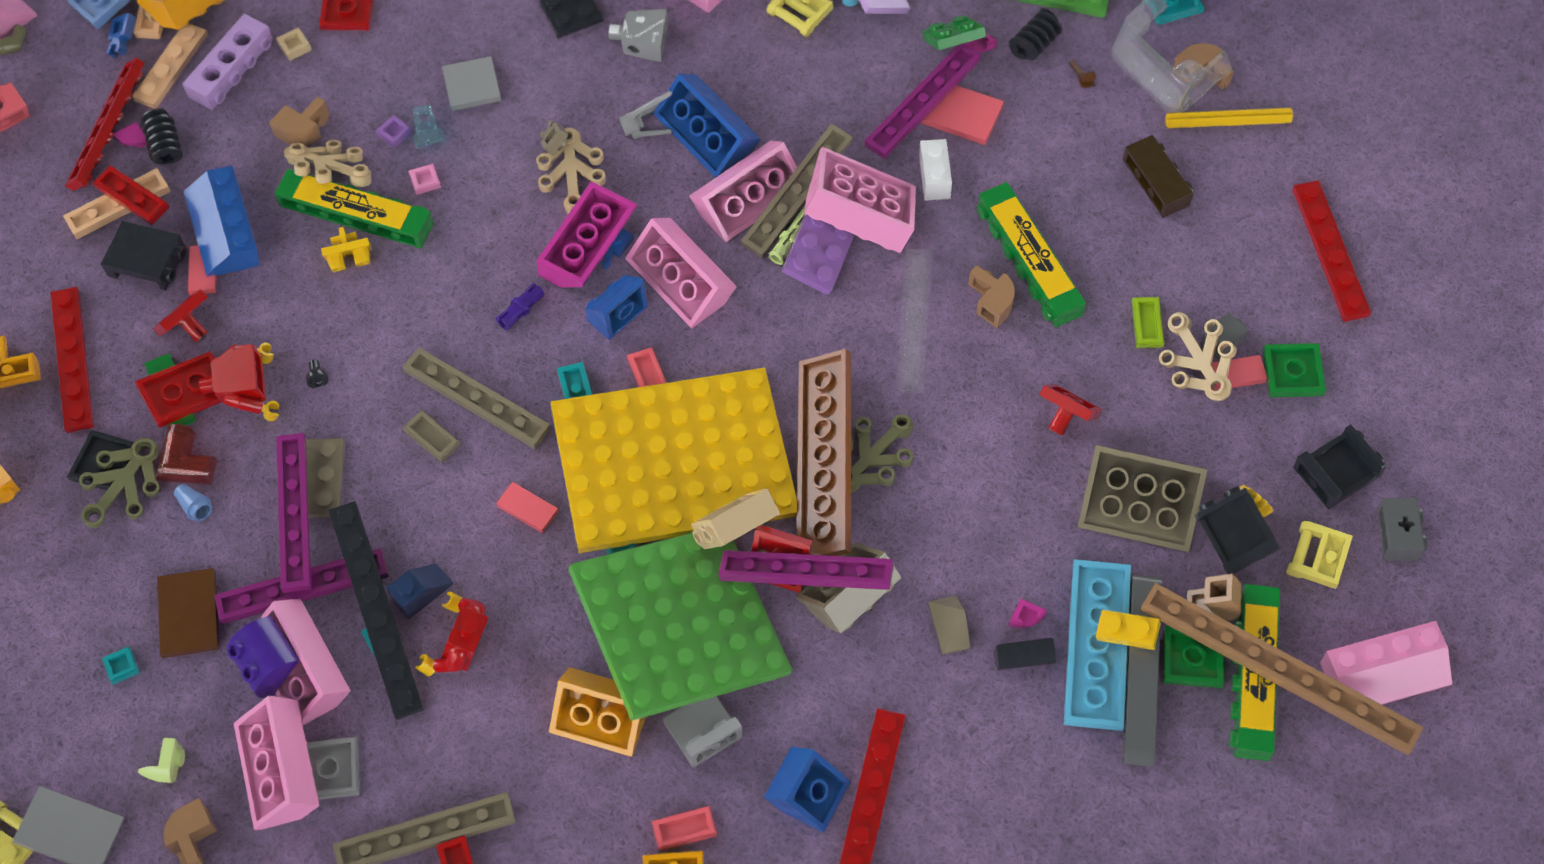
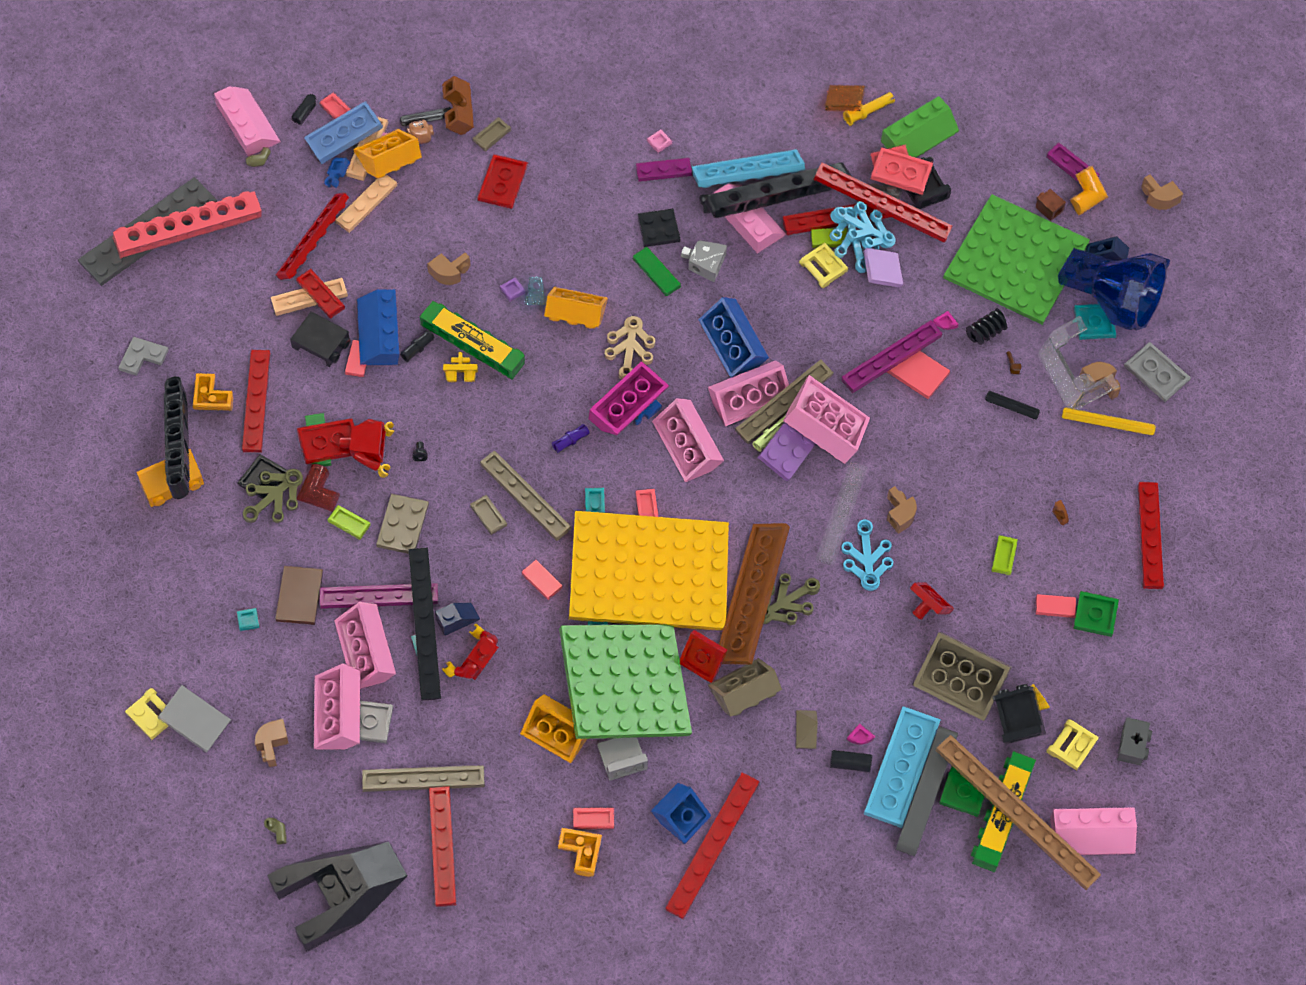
camera: 10 degrees right, 0 degrees up
(131, 136) = (329, 249): dark pink tile -> none
(161, 137) = (349, 255): black piece -> none
(170, 759) = (269, 688): yellowish green plate -> none
(183, 316) = (338, 389): red tile -> none
(193, 502) = (318, 521): medium blue cone -> none
(228, 62) = (410, 202): lavender brick -> none
(237, 493) = (349, 522): none -> lime tile
(262, 656) = (343, 636): dark purple brick -> none
(280, 233) = (417, 345): none -> black pin
(293, 513) = (384, 544): magenta plate -> none
(294, 44) = (456, 207): tan plate -> none
(300, 156) = (443, 291): tan plant -> none
(424, 179) = (526, 329): bright pink tile -> none
(471, 83) = (575, 266): light grey tile -> none
(484, 135) = (575, 307): none -> light orange slope
(554, 137) = (623, 322): dark tan plate -> none
(581, 65) = (656, 271): none -> green tile
(617, 305) = (637, 454): blue slope -> none
(632, 121) = (682, 323): light grey plant -> none
(734, 519) = (678, 622): tan window -> none
(806, 570) = (718, 668): magenta plate -> none
(935, 169) = (886, 409): white brick -> none
(953, 33) = (927, 311): green plate -> none
(966, 371) = (866, 558): none -> medium azure plant
(1031, 255) = (936, 487): brick -> none
(1098, 126) = (1012, 405): none -> black axle
(1128, 629) = (924, 762): yellow plate -> none
(1158, 176) = (1043, 452): dark brown brick -> none
(1201, 359) = (1032, 590): tan plant -> none
(1205, 248) = (1060, 512): none -> dark orange tile
(1219, 596) = (992, 755): medium nougat brick -> none
(1233, 331) = (1054, 578): dark grey brick -> none
(1271, 42) = (1157, 372): none -> light grey tile
(1340, 467) = (1106, 689): black panel -> none

